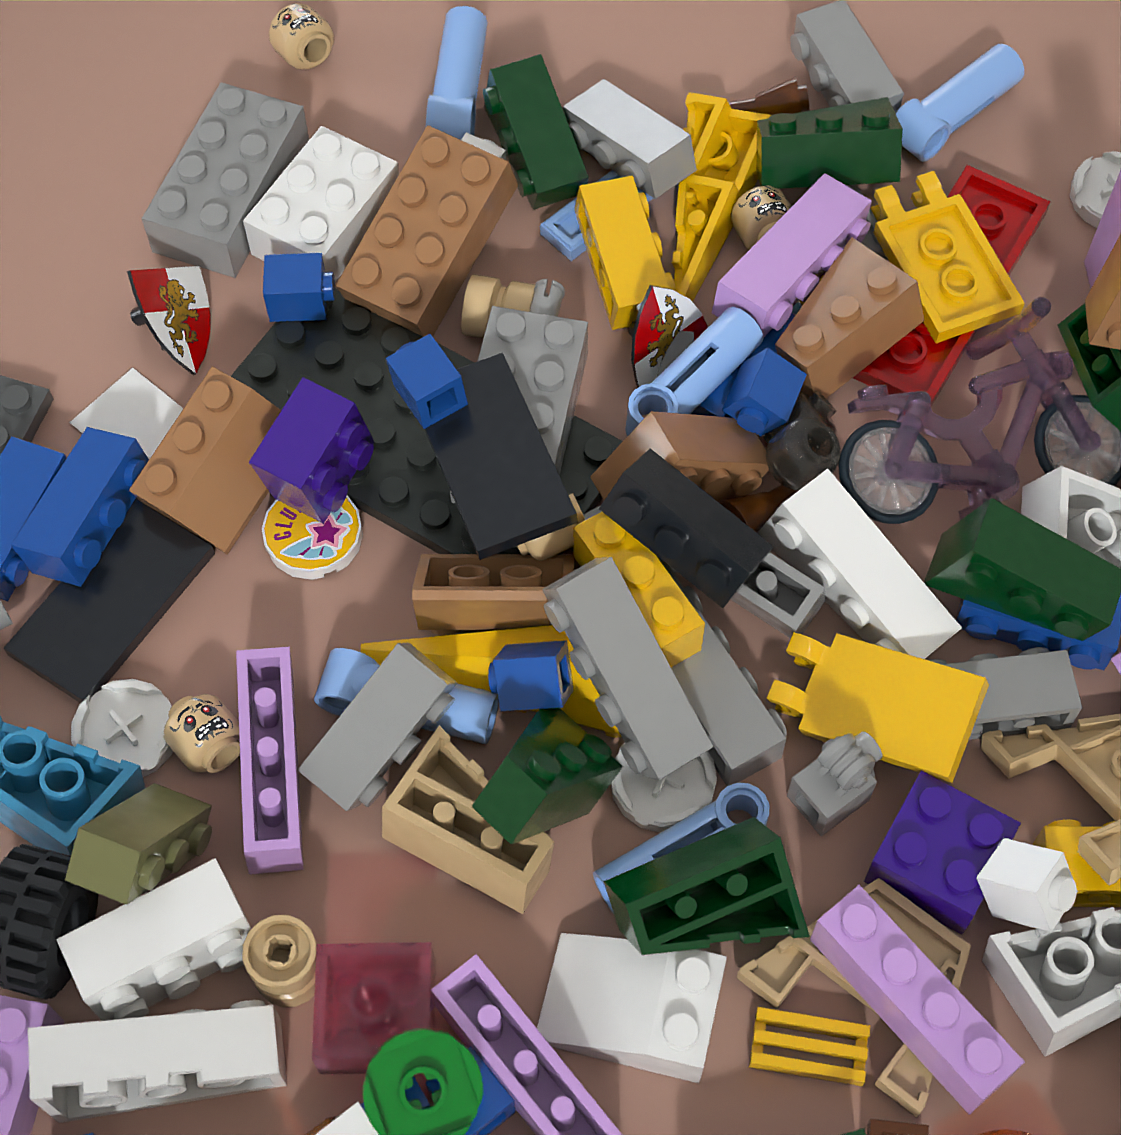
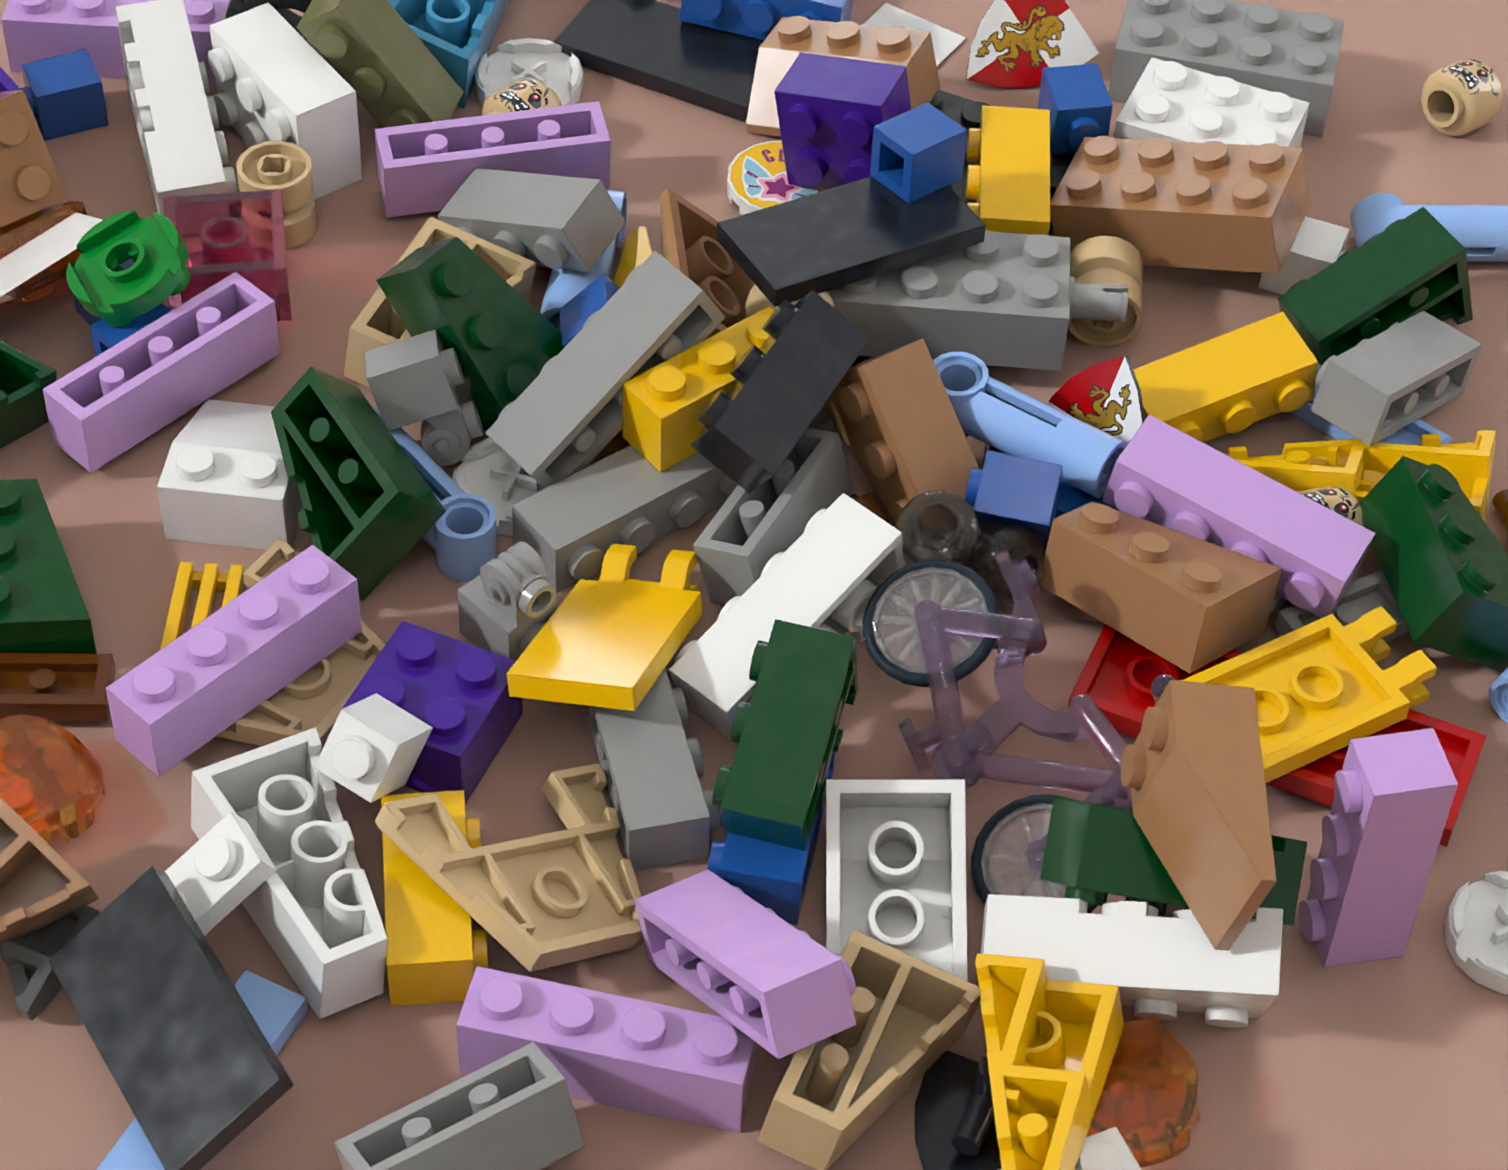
camera: 80 degrees right, 15 degrees down
(357, 338) = (1010, 170): none -> yellow brick
(602, 830) = (418, 383): none -> light grey brick

